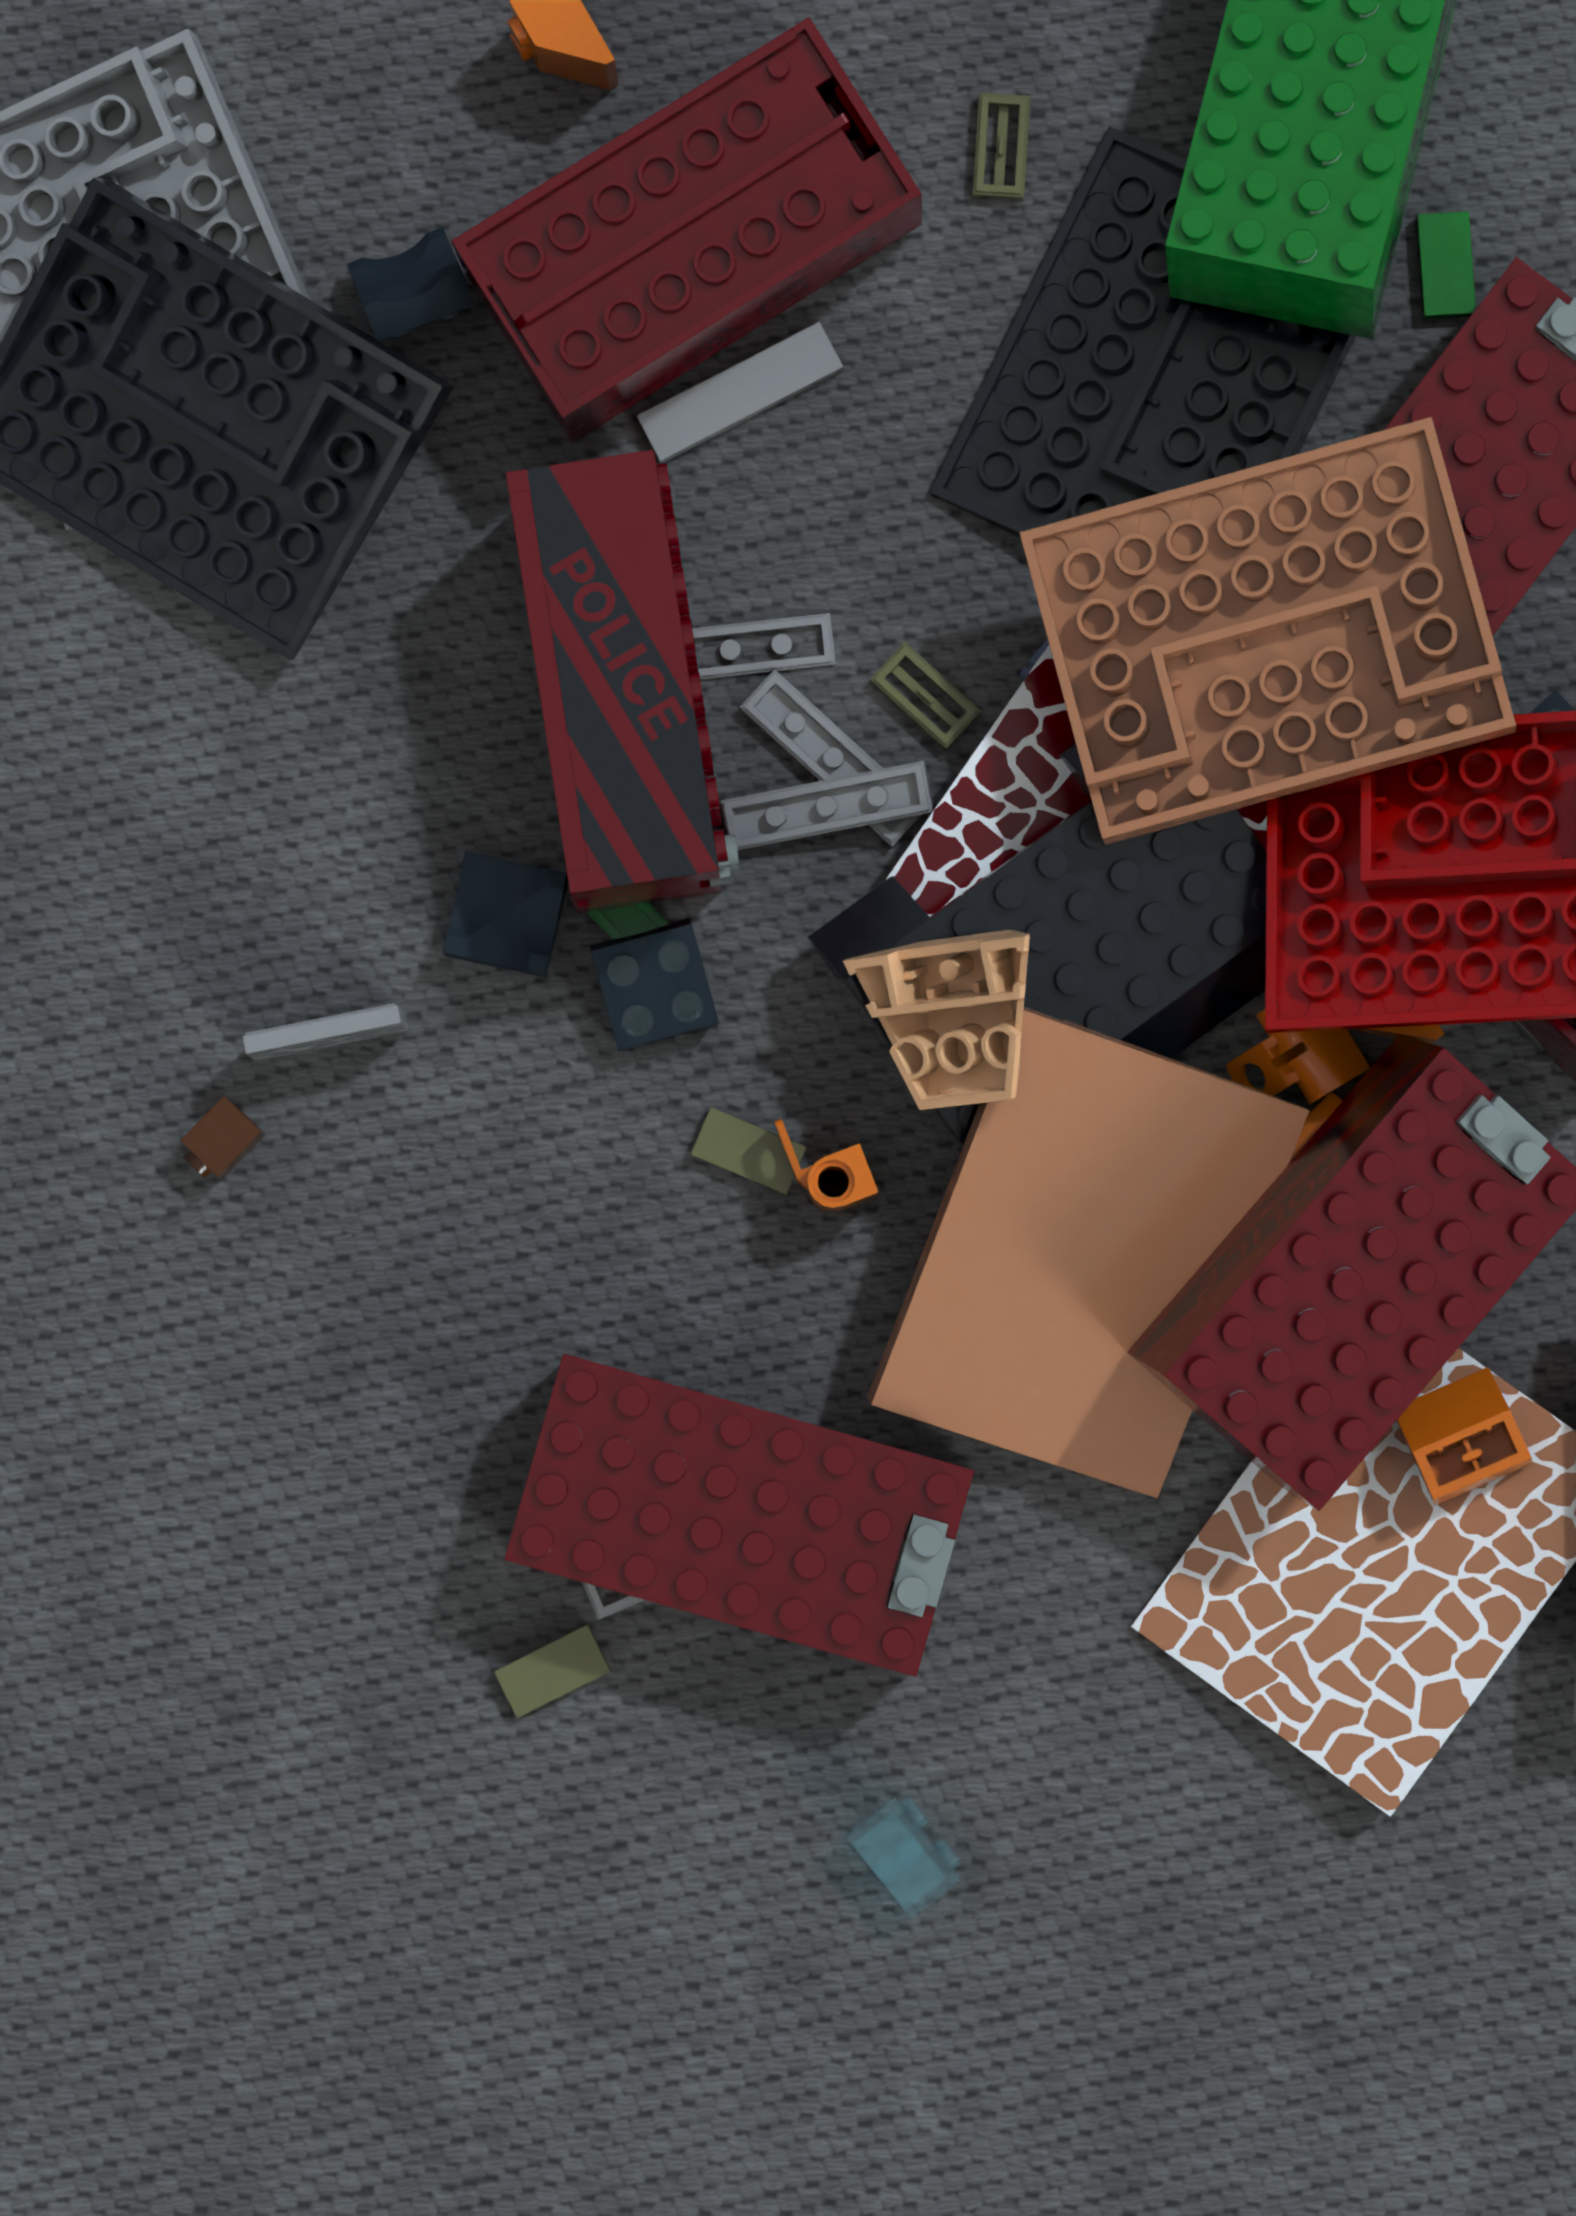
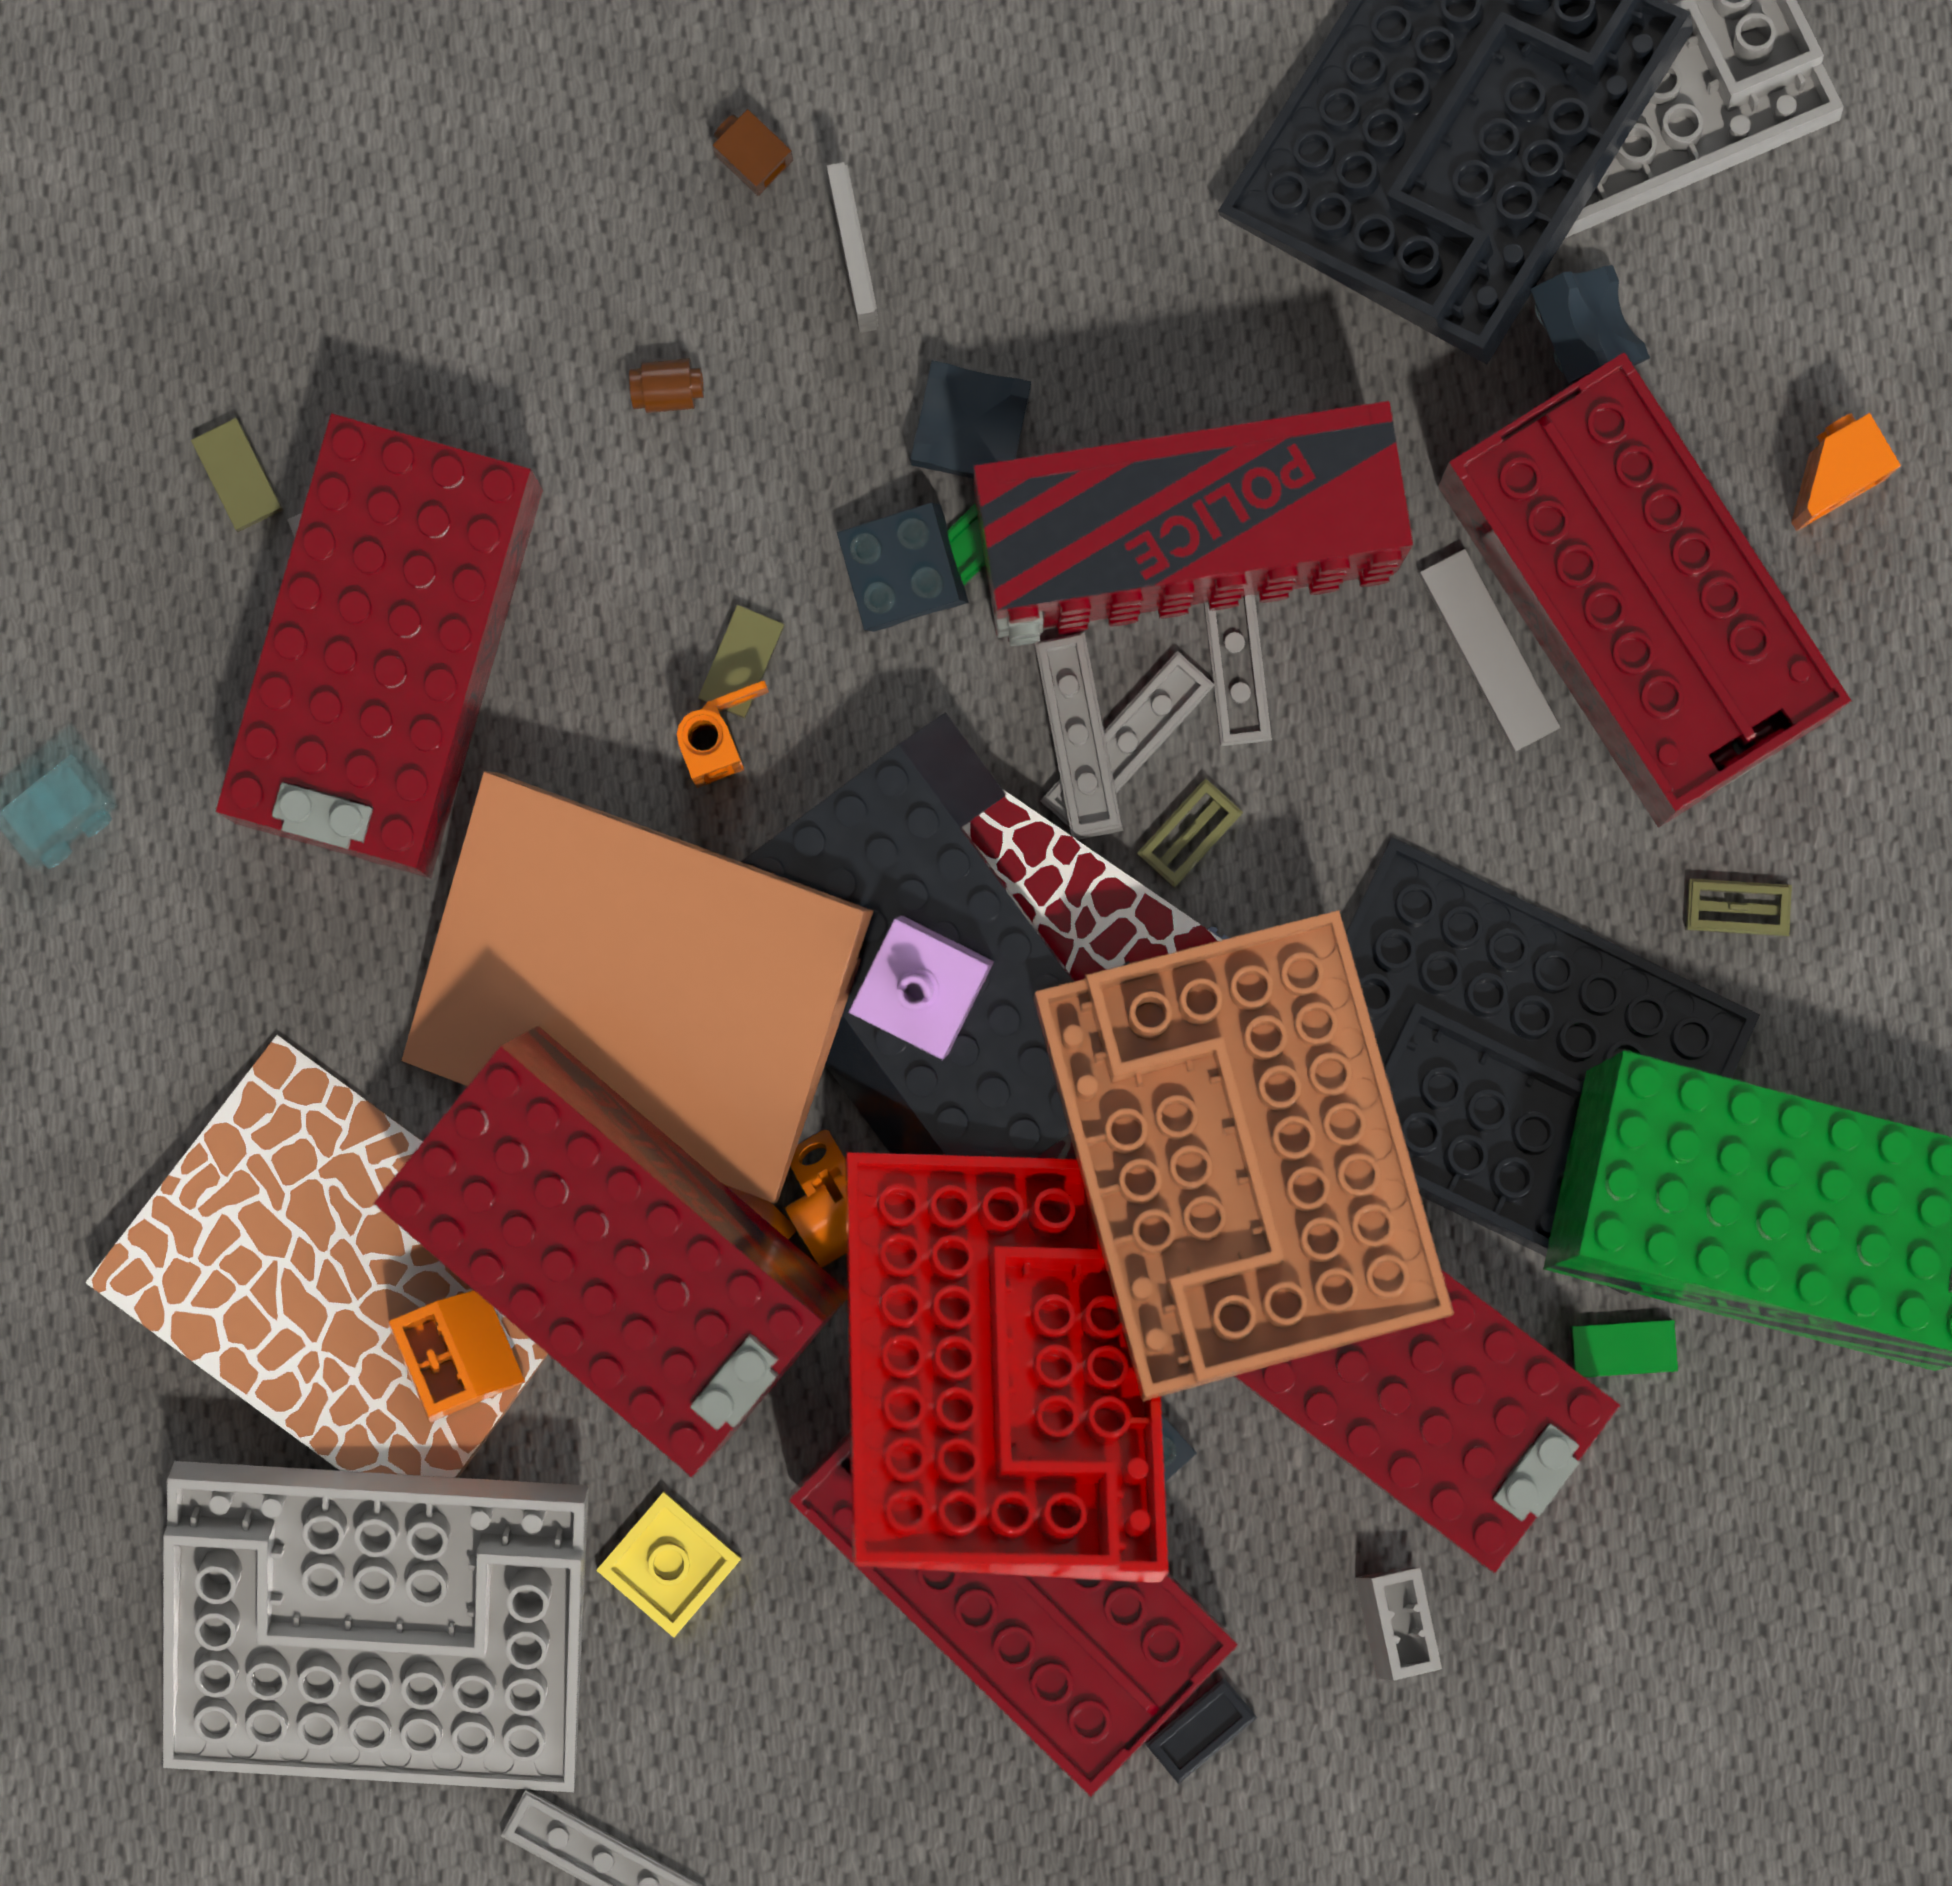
camera: 90 degrees right, 0 degrees up
(464, 1226) = (666, 385): none -> reddish brown brick
(951, 1014) = (860, 841): light nougat wedge -> none
(1095, 955) = (921, 987): none -> lavender brick

